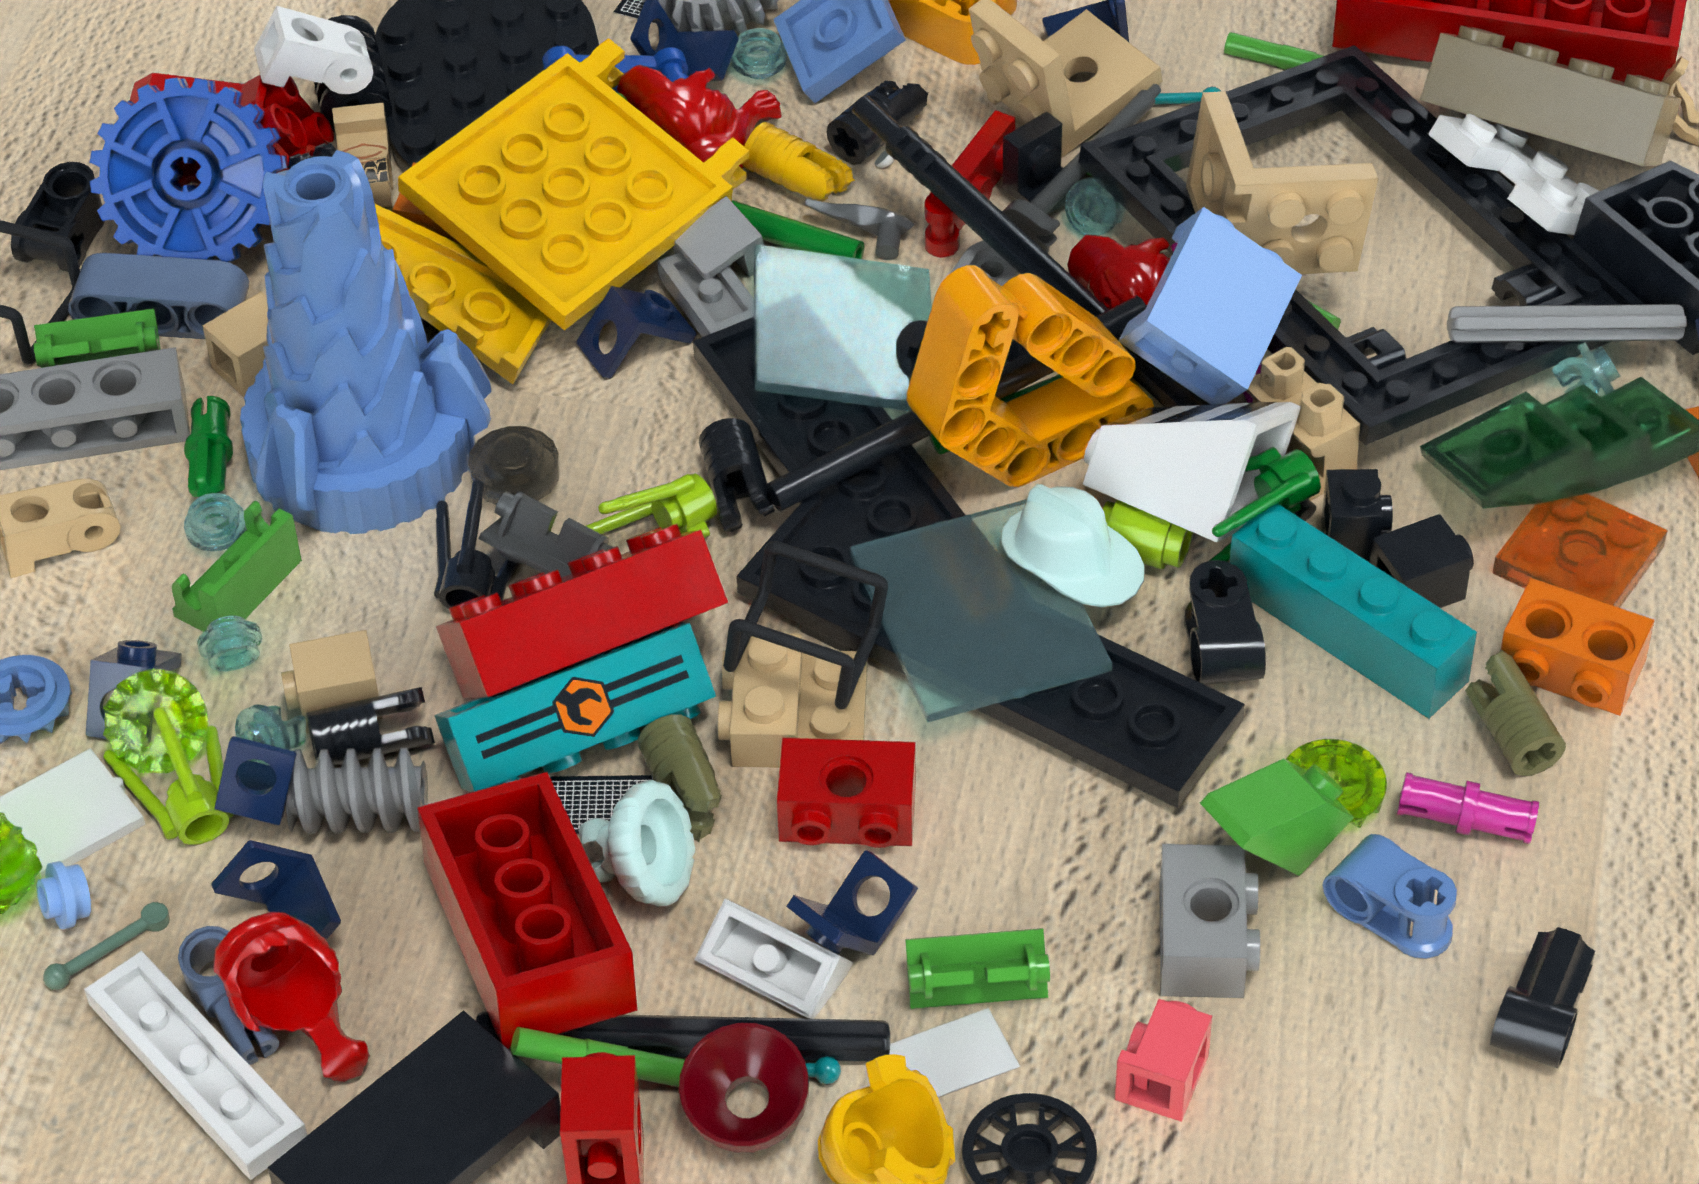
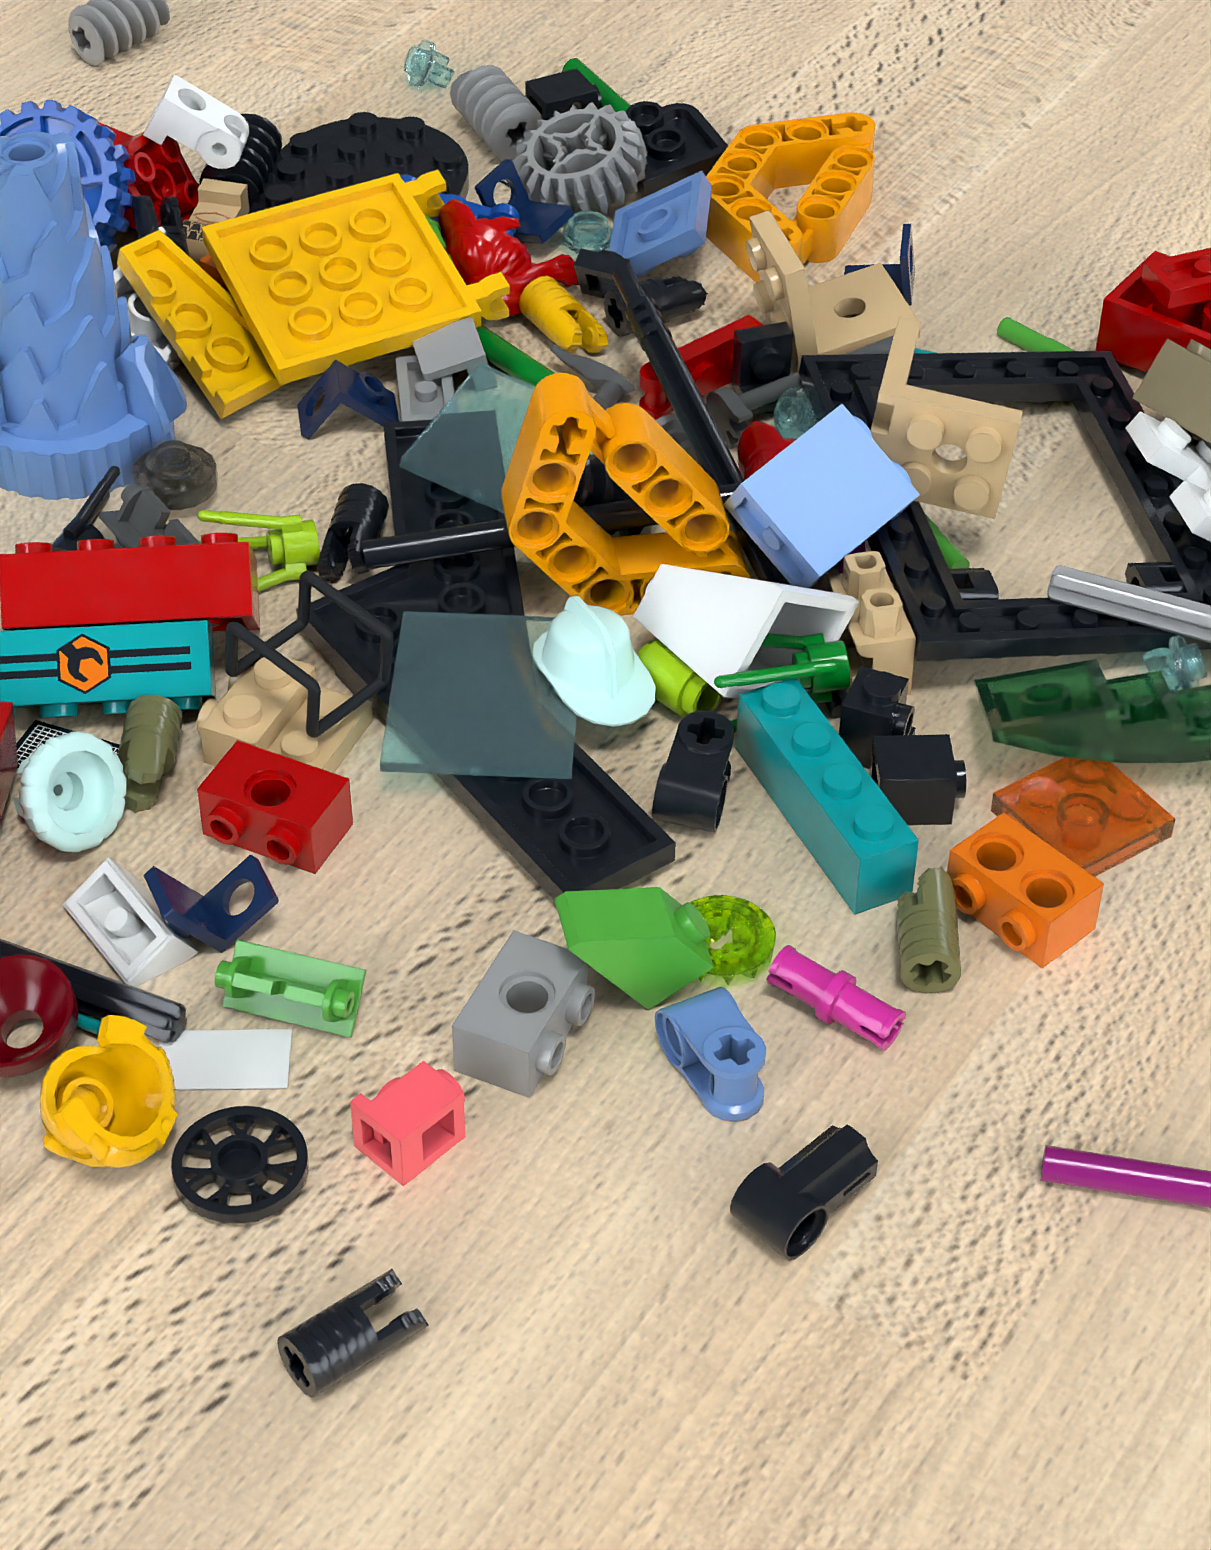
camera: 20 degrees right, 5 degrees down
(812, 100) = (596, 269): none -> black plate

